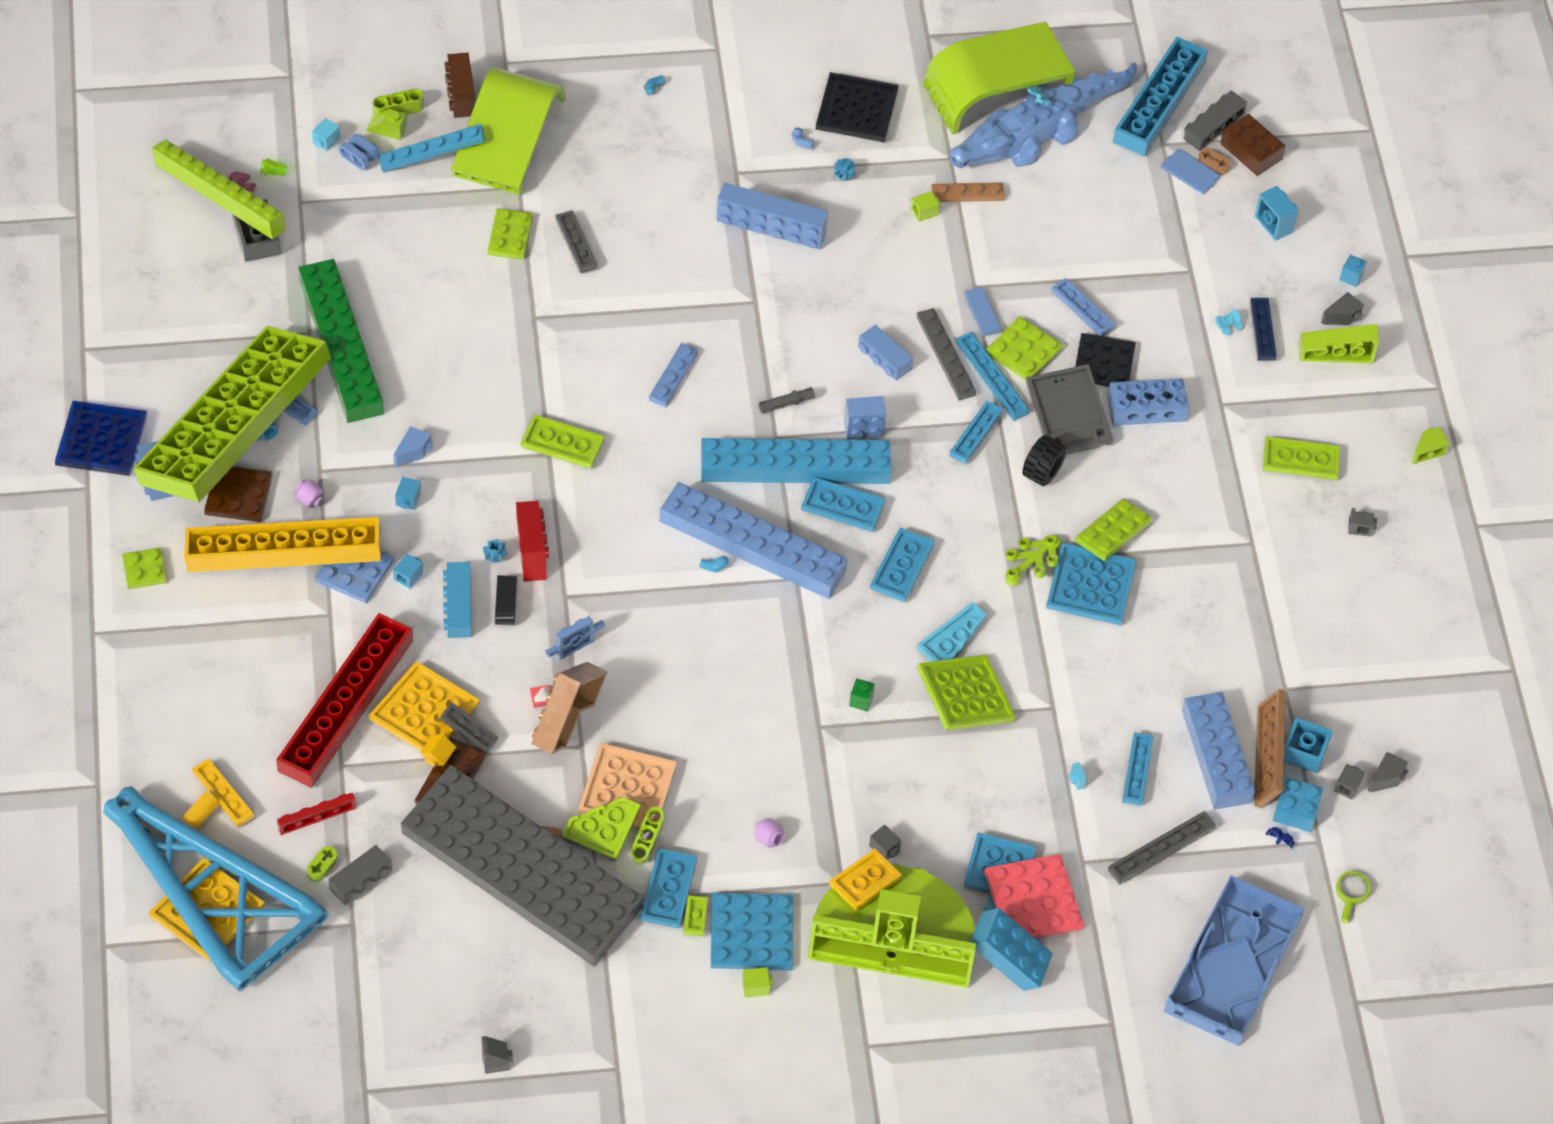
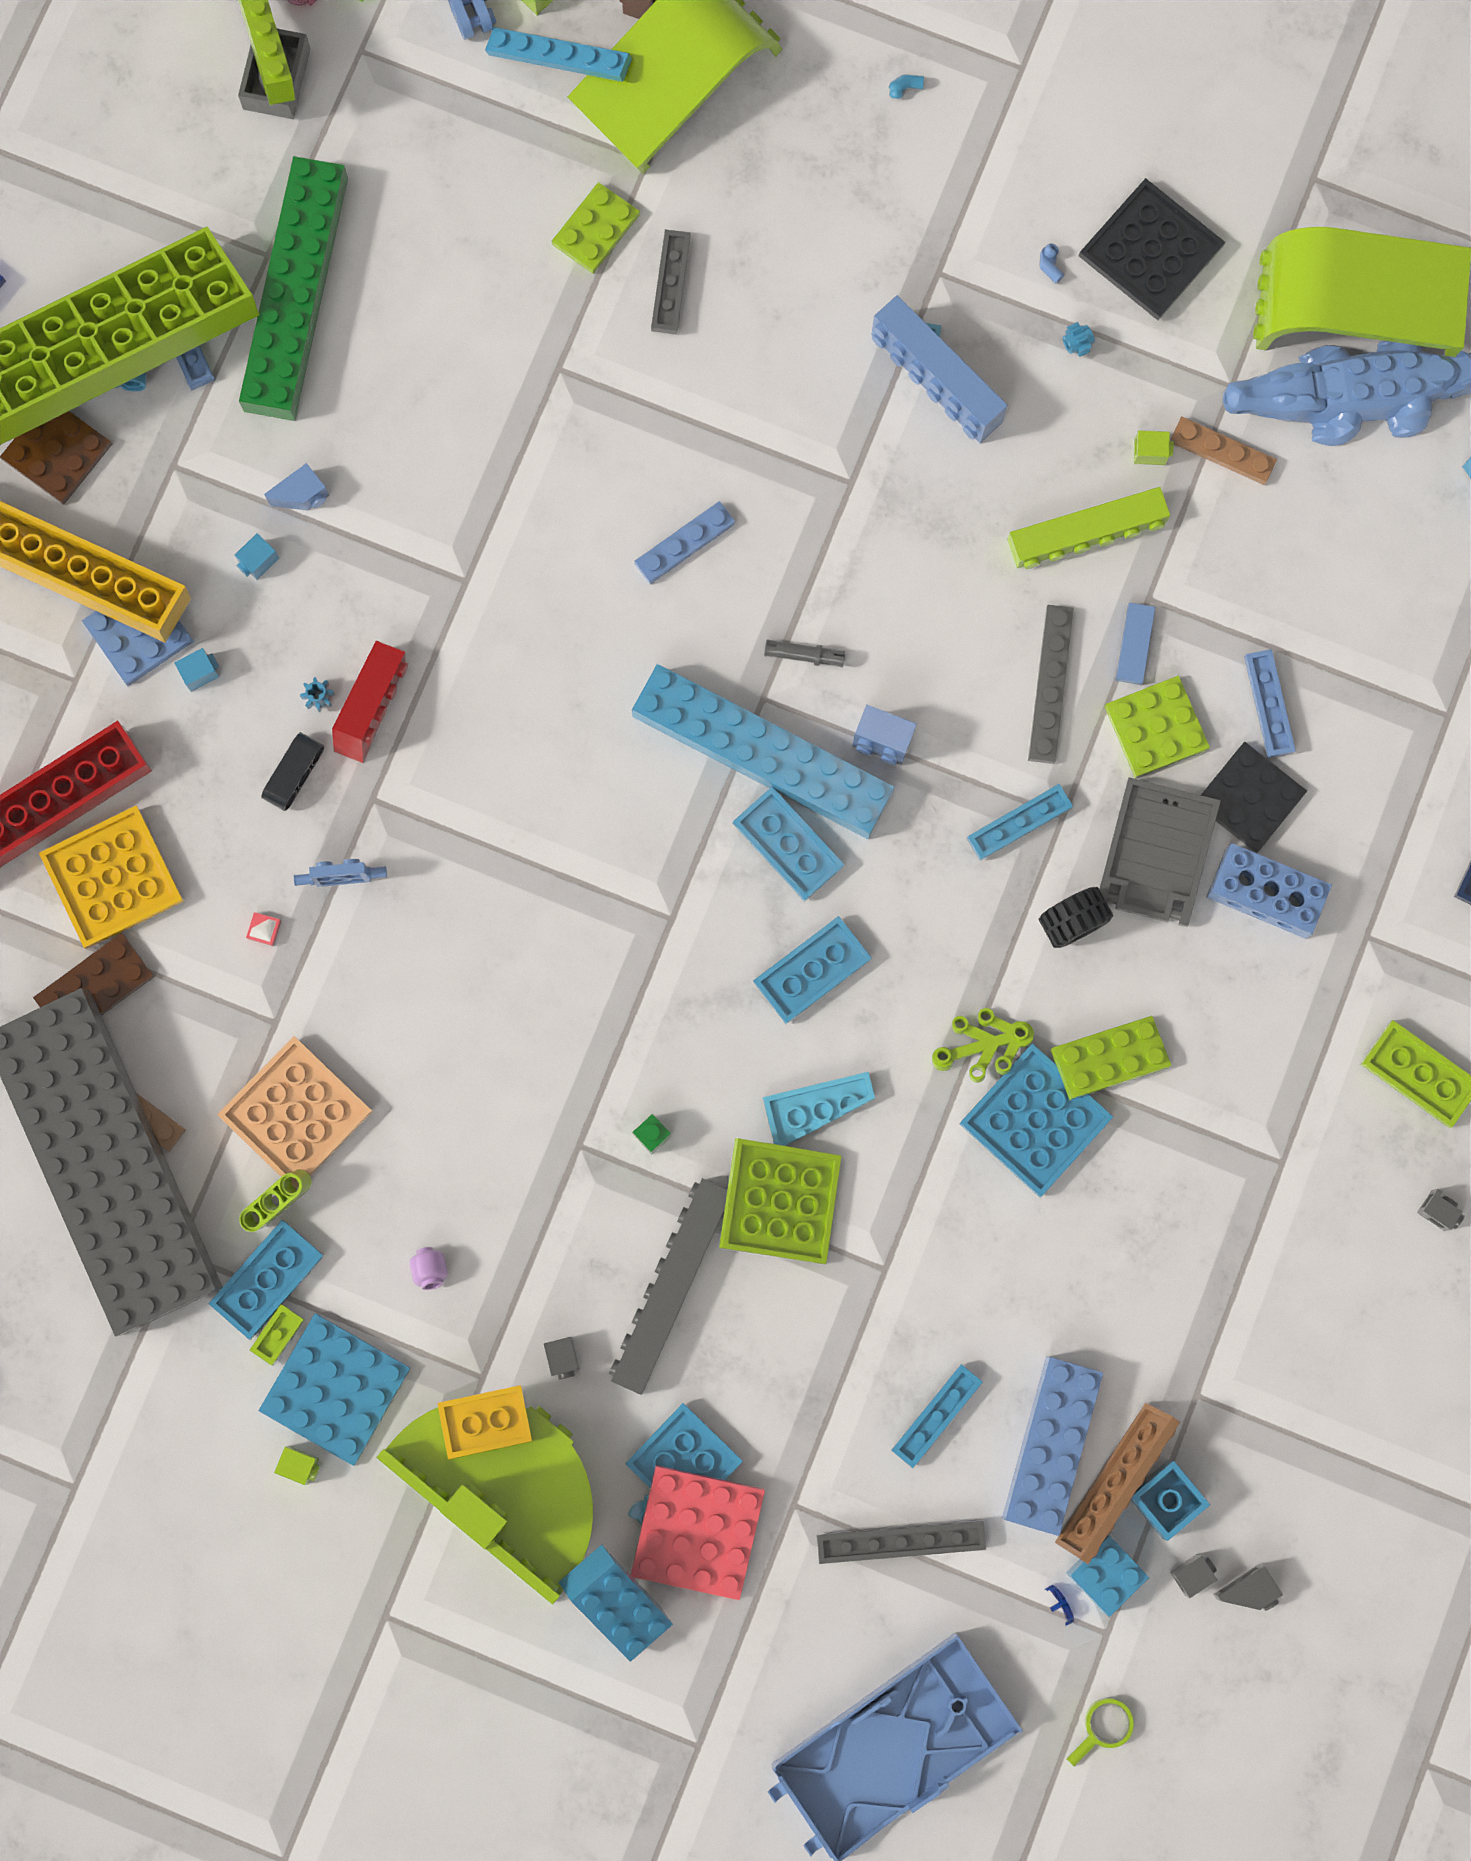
camera: 30 degrees right, 25 degrees up
(309, 493) = (136, 496): lavender head -> none
(437, 750) = (87, 950): yellow brick -> none
(458, 599) = (234, 742): dark azure brick -> none
(468, 727) = (144, 935): dark grey plate -> none
(562, 441) = (489, 574): lime plate -> none
(572, 693) = (271, 970): medium nougat piece -> none
(604, 827) = (231, 1158): lime plate -> none
(715, 565) = (579, 852): dark azure arm -> none
(753, 540) = (643, 841): medium blue brick -> none
(885, 352) = (970, 646): medium blue brick -> none
(915, 262) = (1088, 527): none -> lime brick
(928, 773) = (671, 1286): none -> dark grey brick
(992, 376) = (1091, 747): dark azure tile -> none
(1041, 98) = (1394, 366): medium azure piece -> none
(1077, 776) = (852, 1388): medium azure plate -> none
(1232, 318) = (1460, 818): medium azure piece -> none

